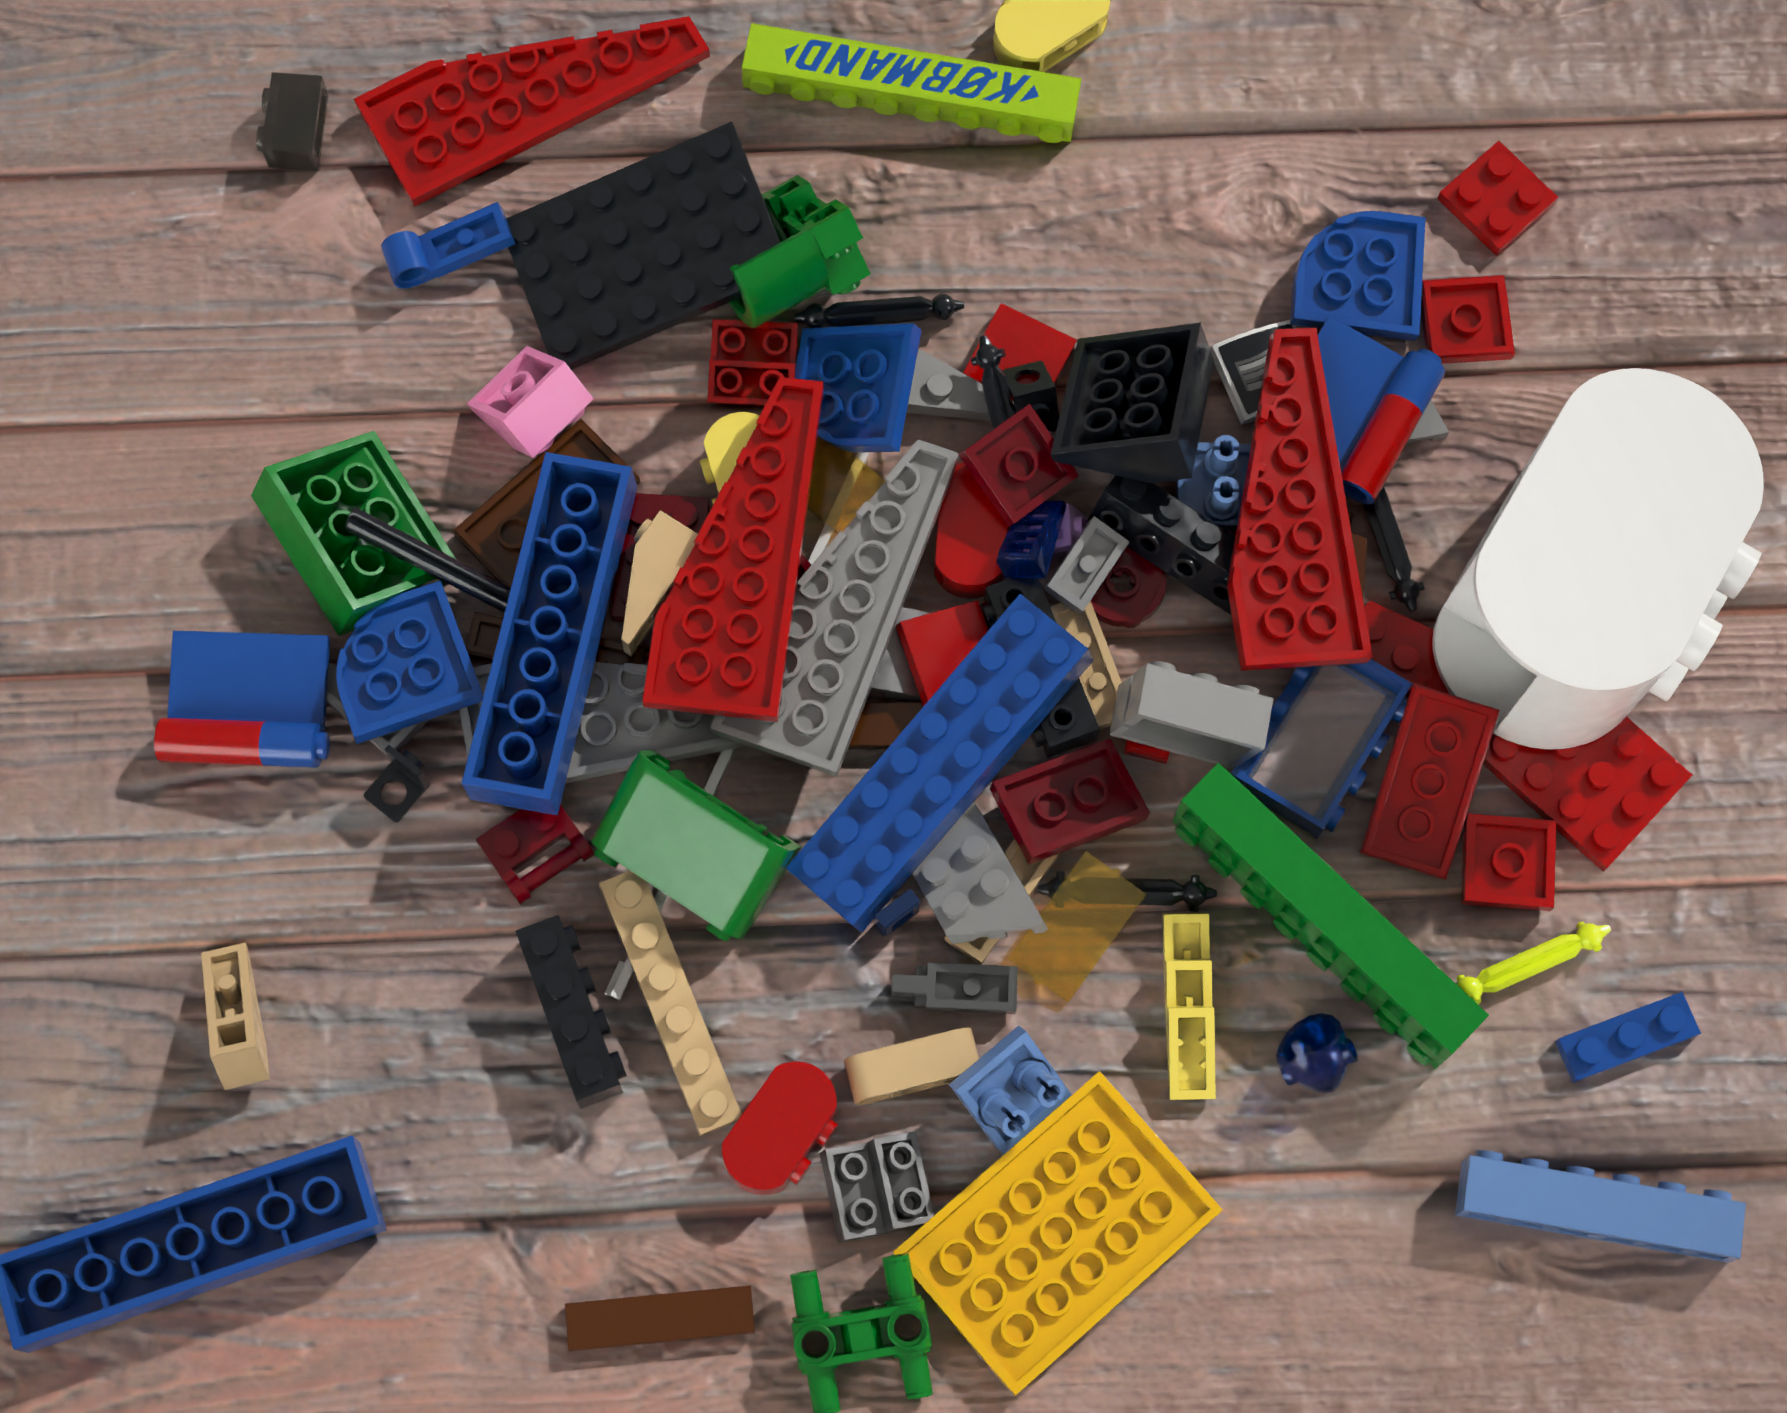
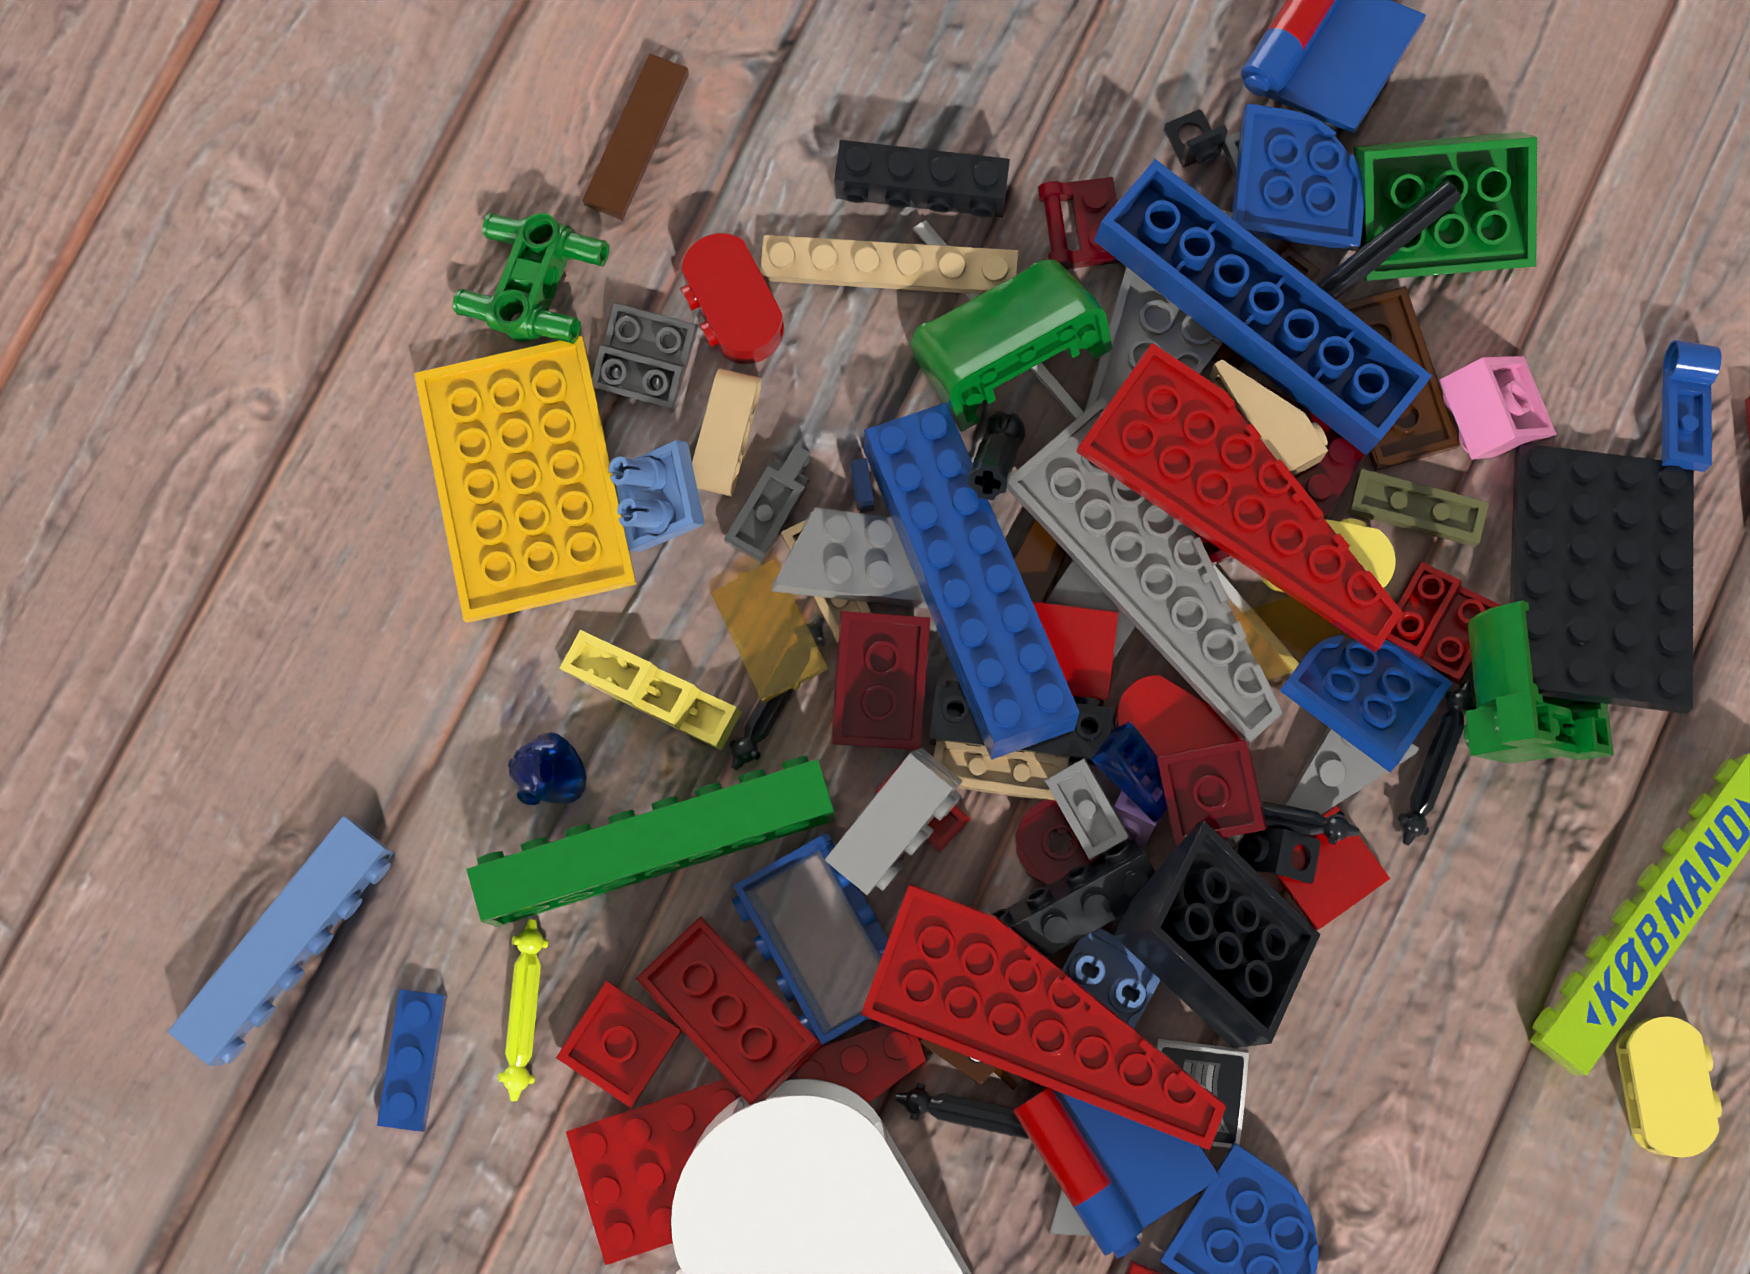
camera: 125 degrees right, 5 degrees up
(659, 426) = (1418, 507): none -> olive plate
(812, 796) = (996, 455): none -> black piece

